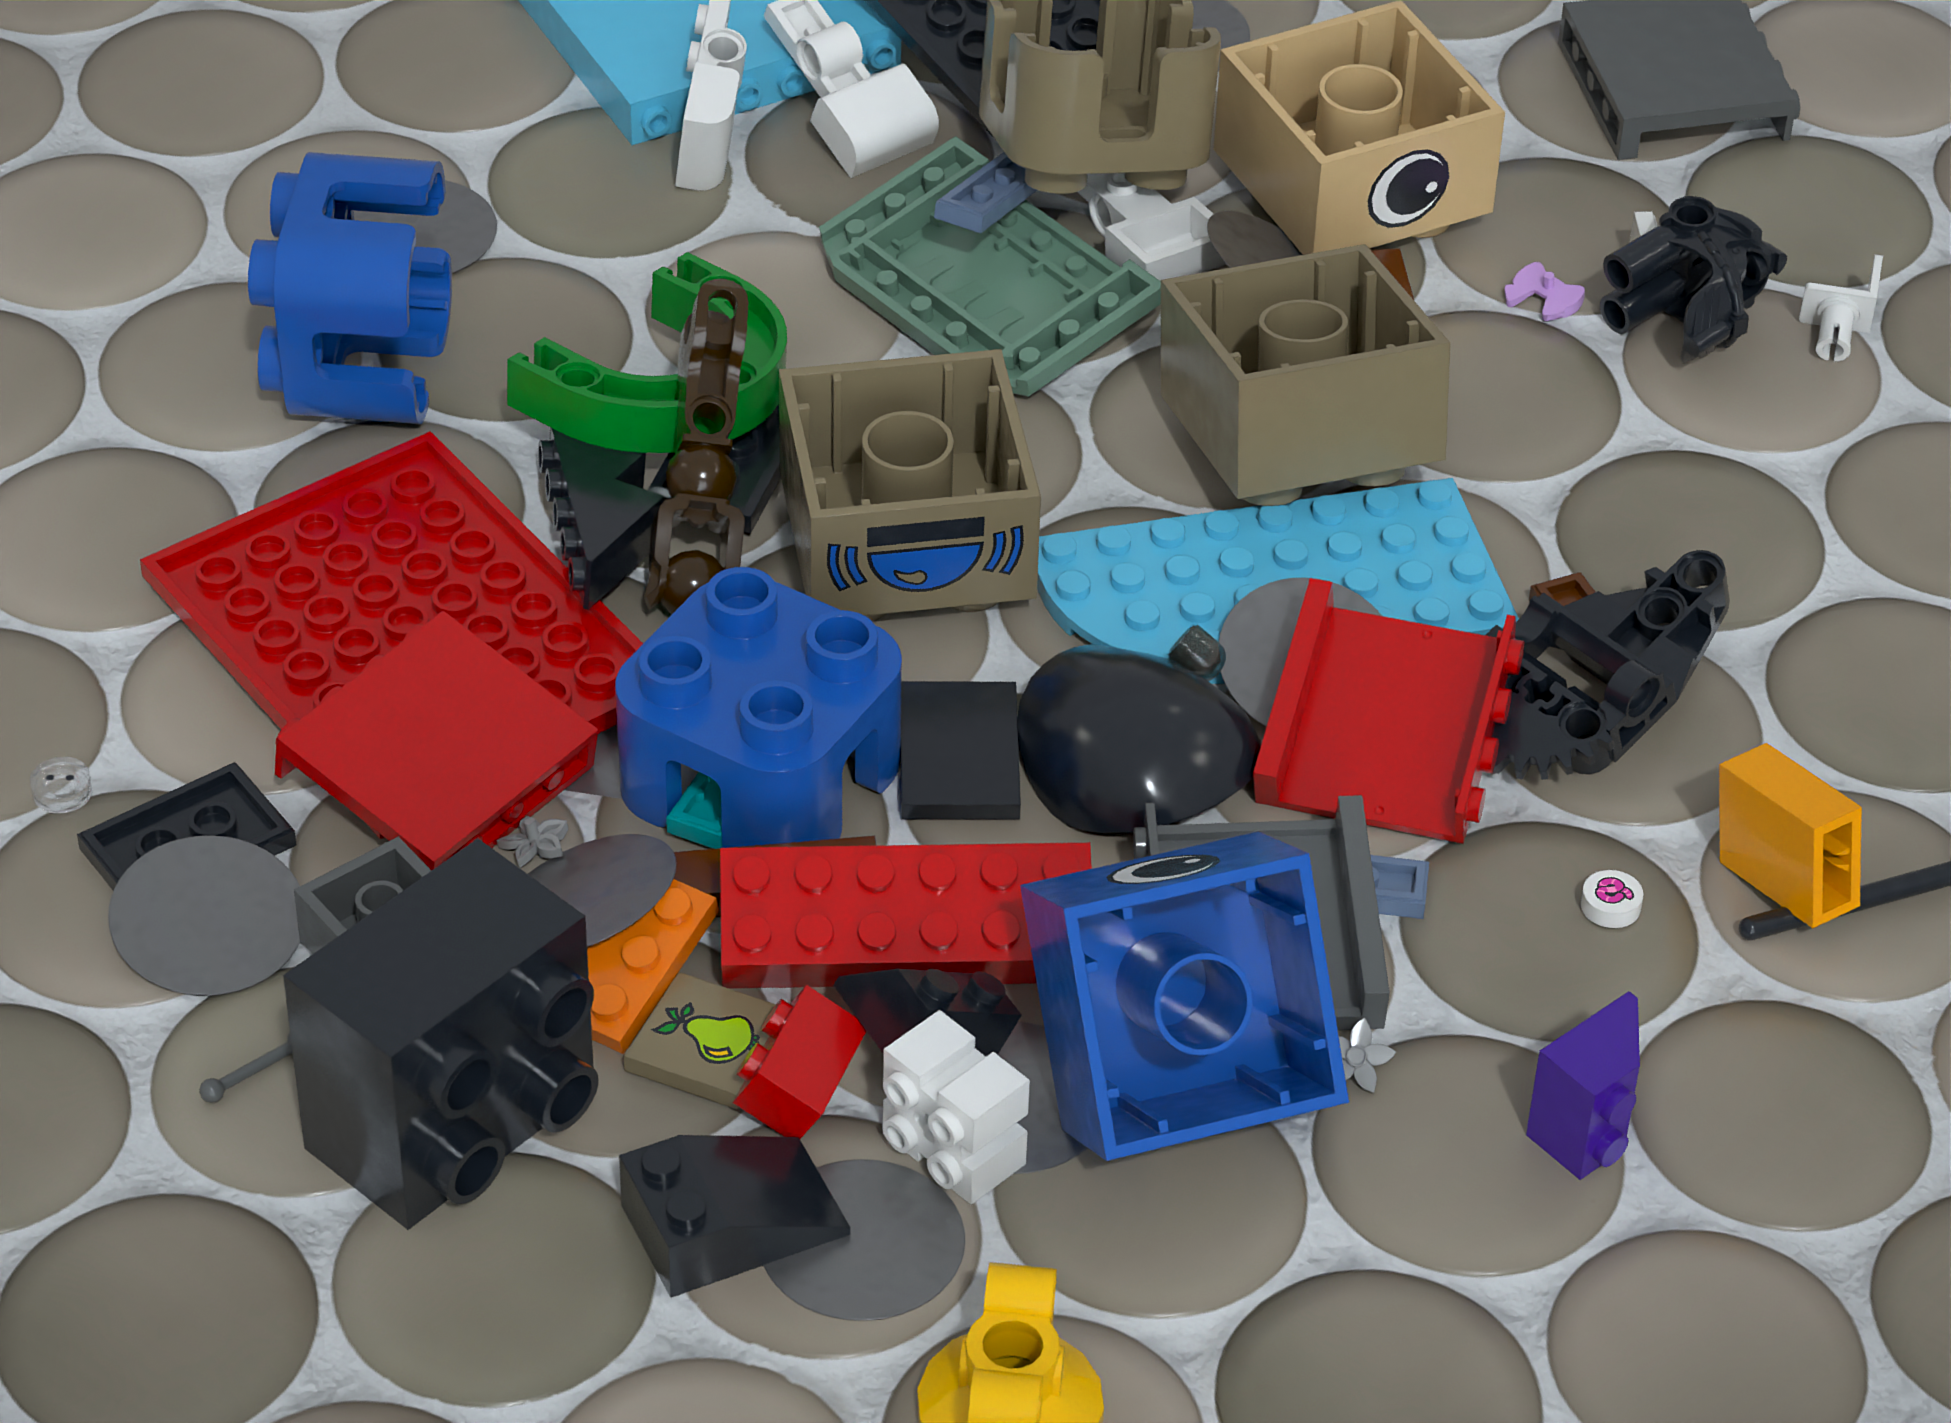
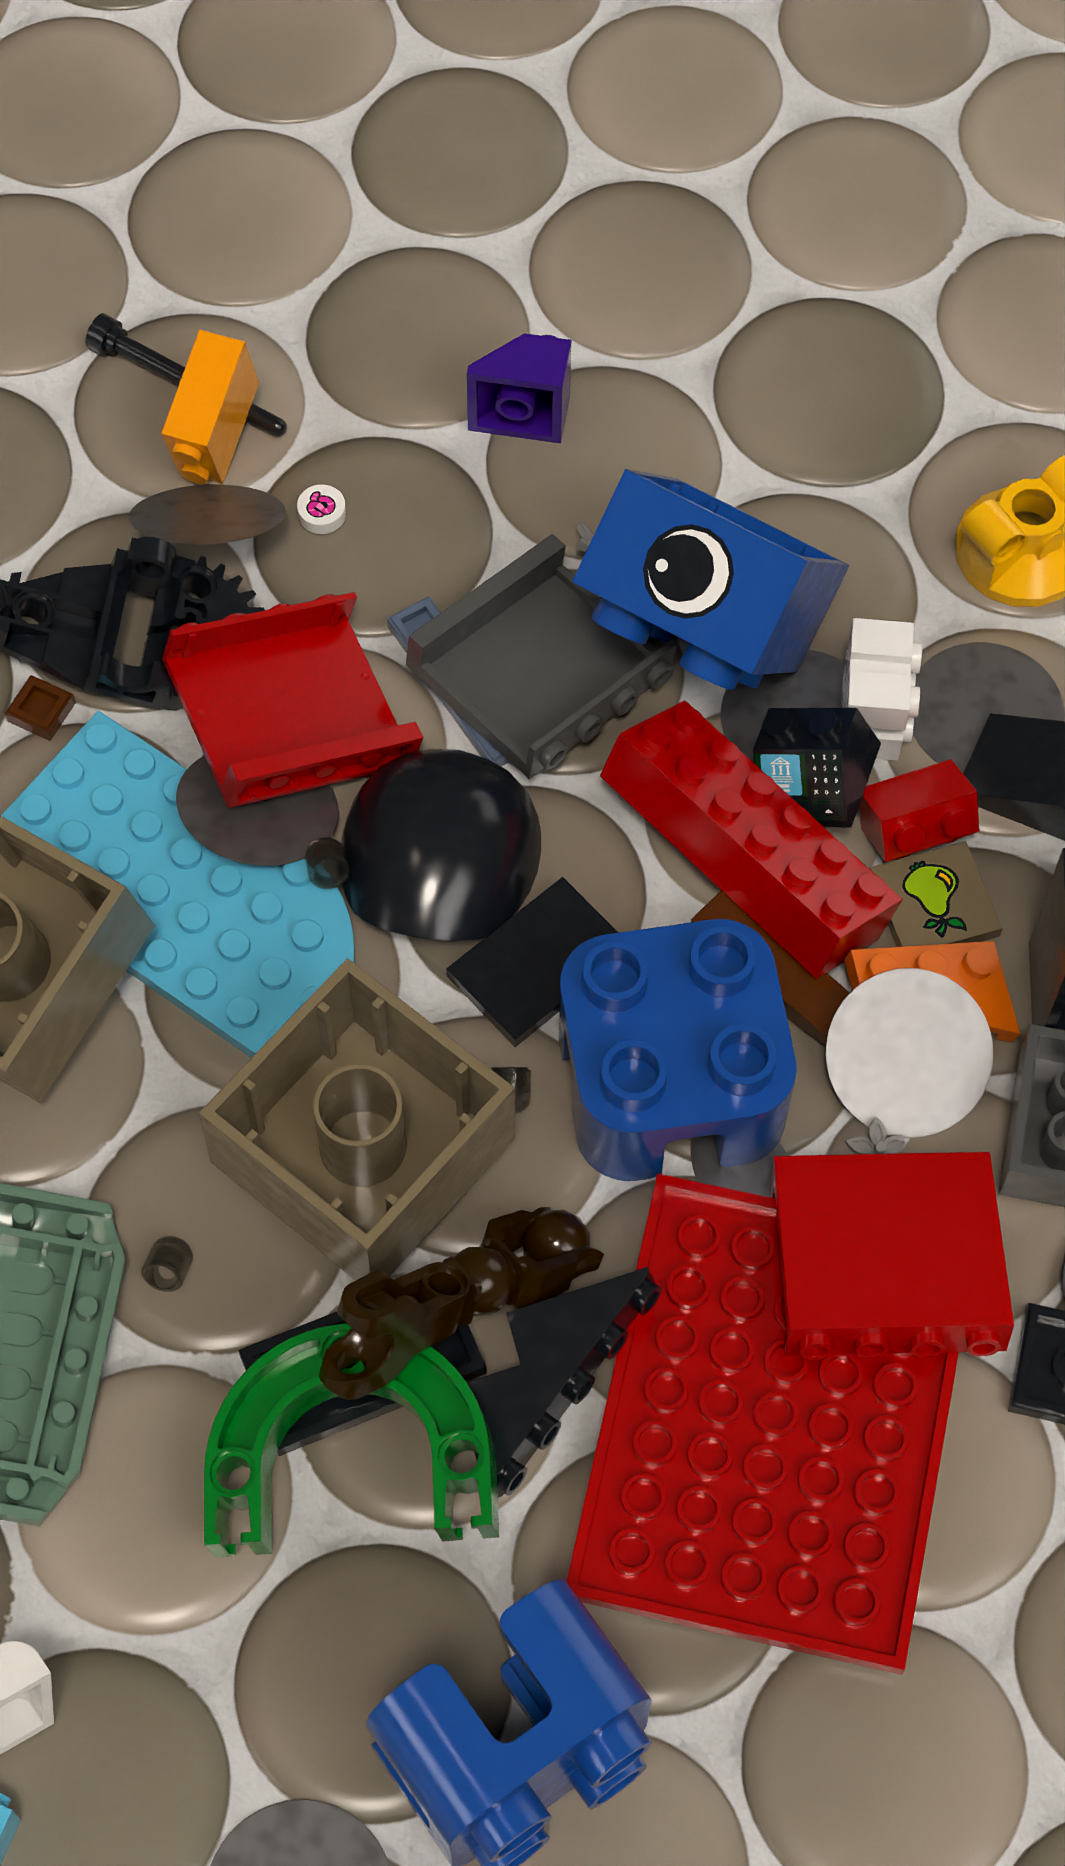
camera: 130 degrees left, 20 degrees up
(1658, 779) = (207, 514): none -> flat silver sticker

